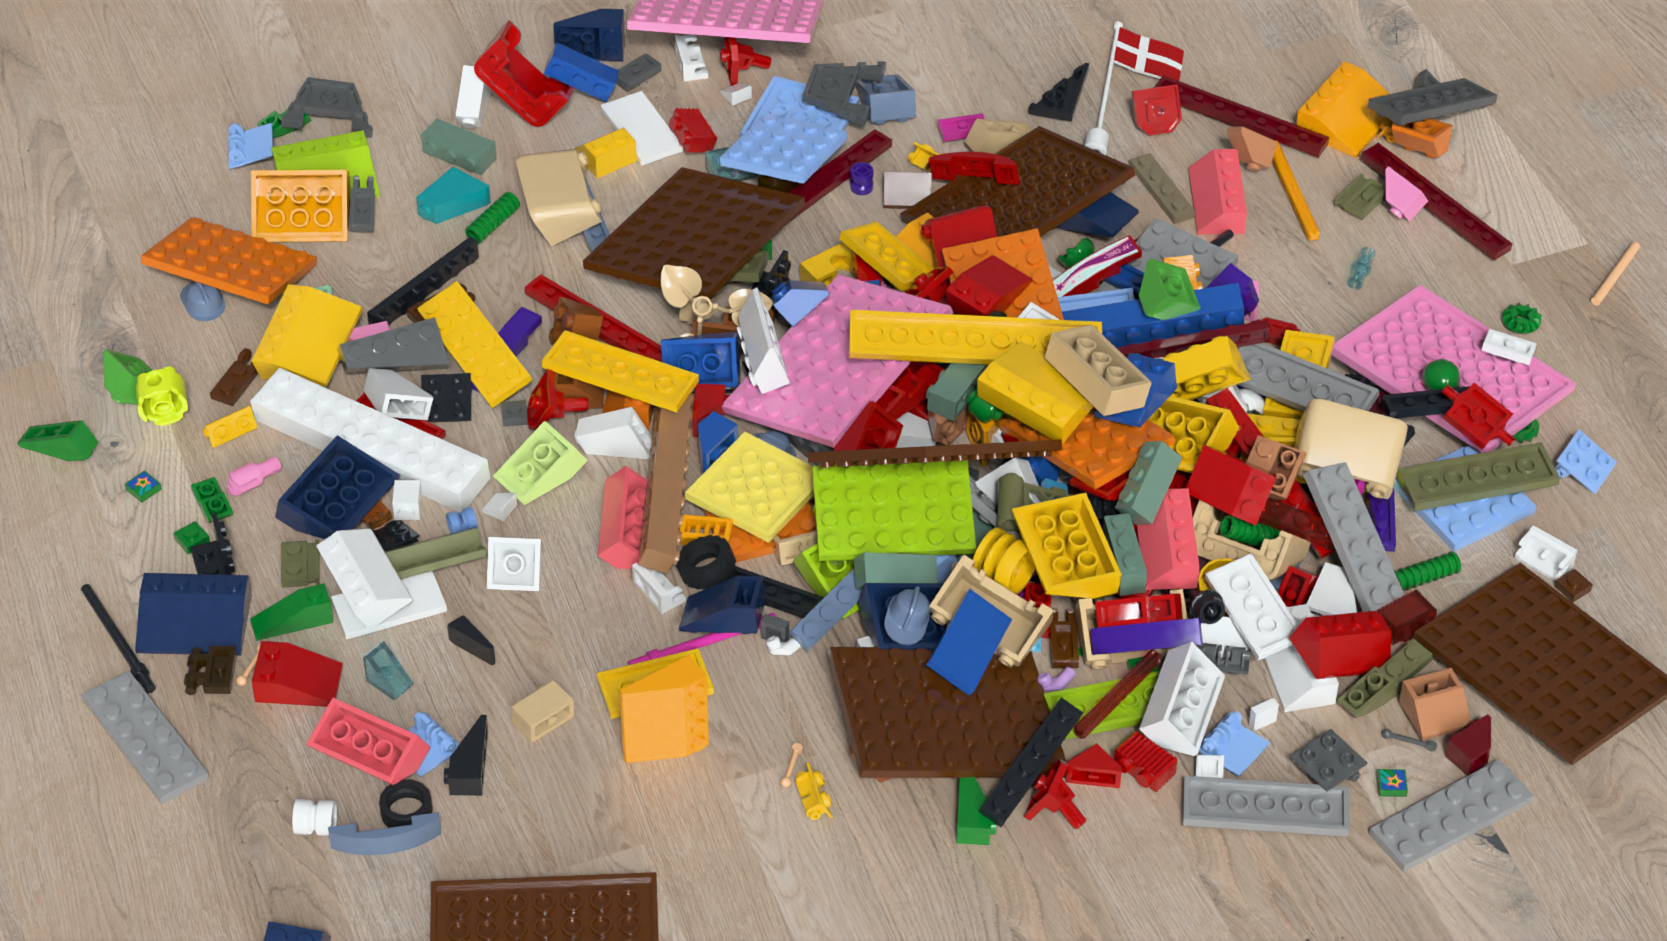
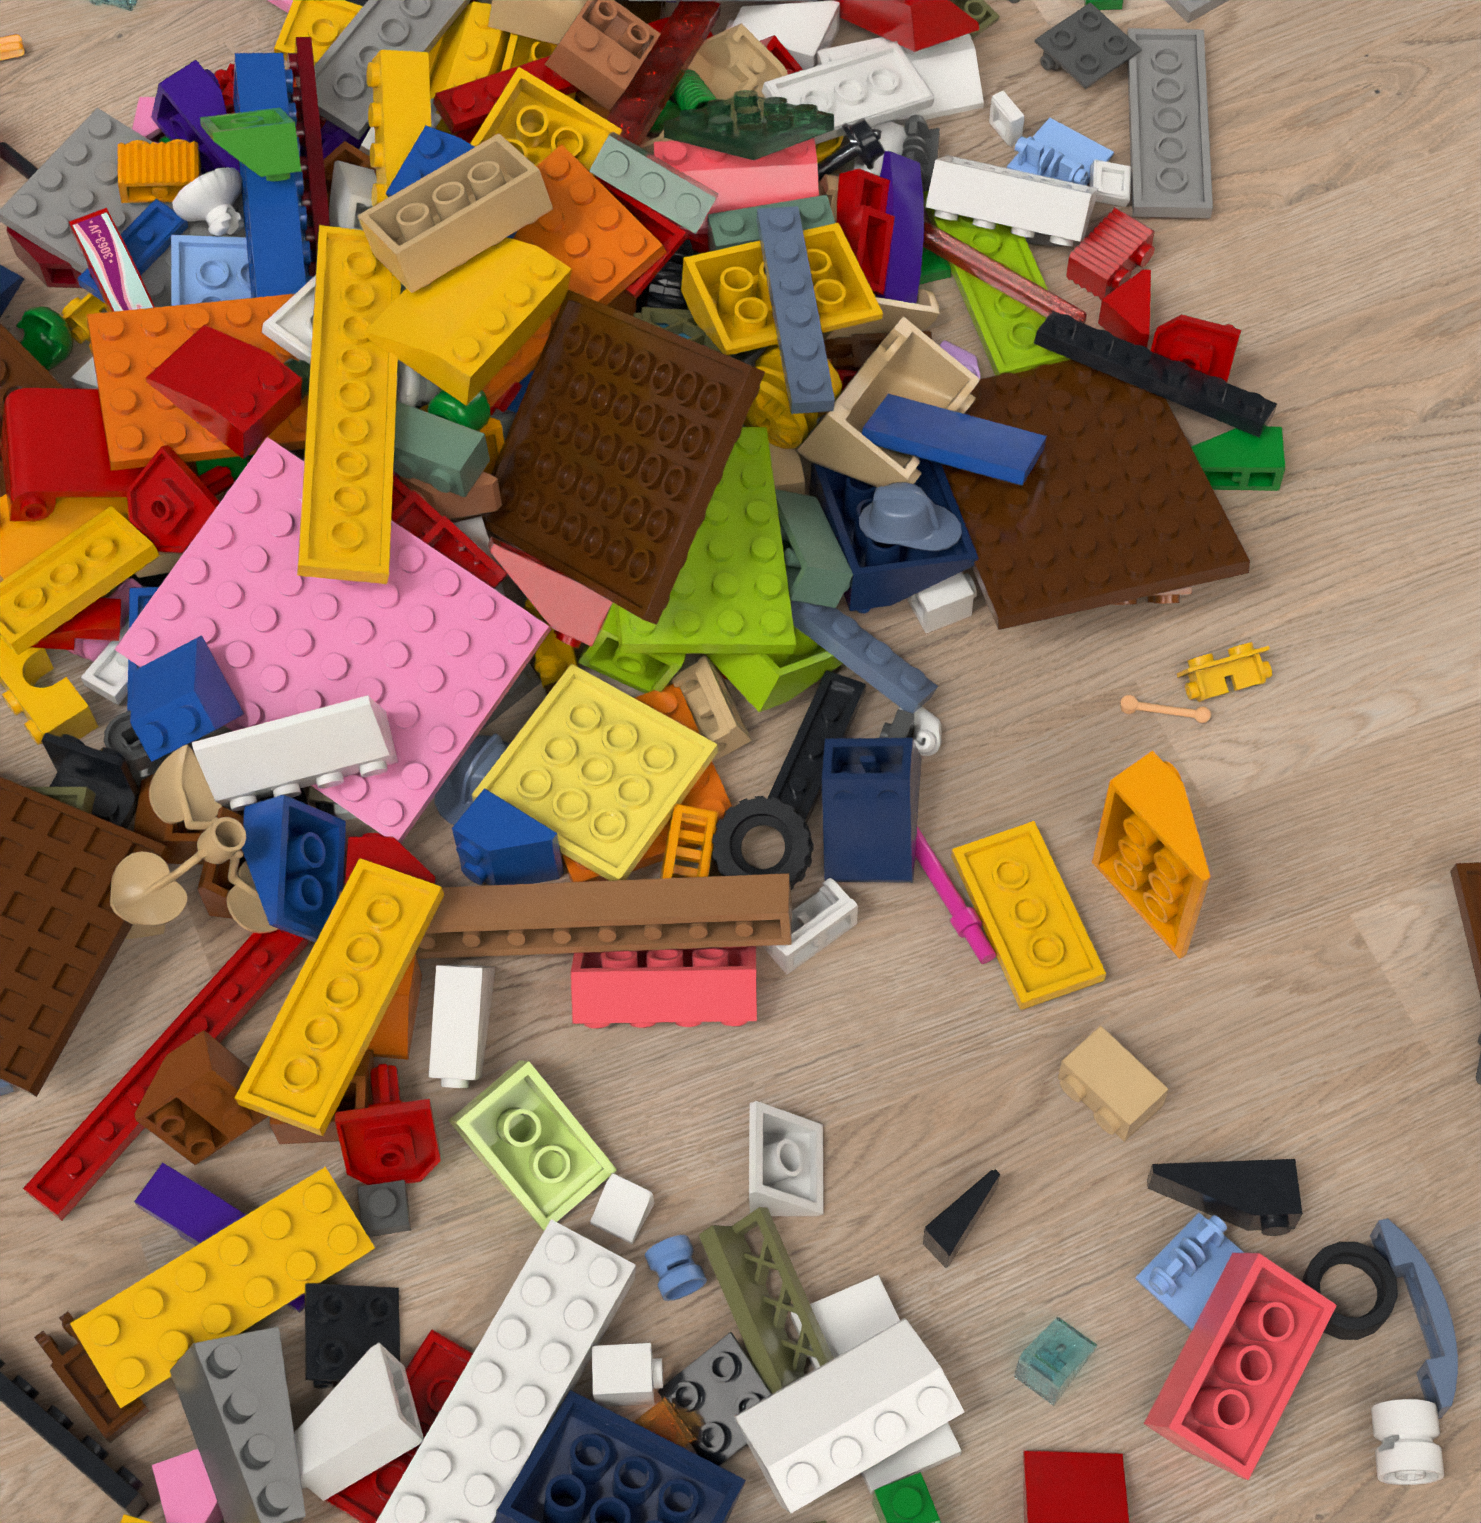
camera: 90 degrees left, 15 degrees up
(1044, 541) = (795, 310): none -> sand blue plate
(1199, 532) = (749, 125): none -> clear green plate
(1230, 484) = (653, 80): red slope -> none

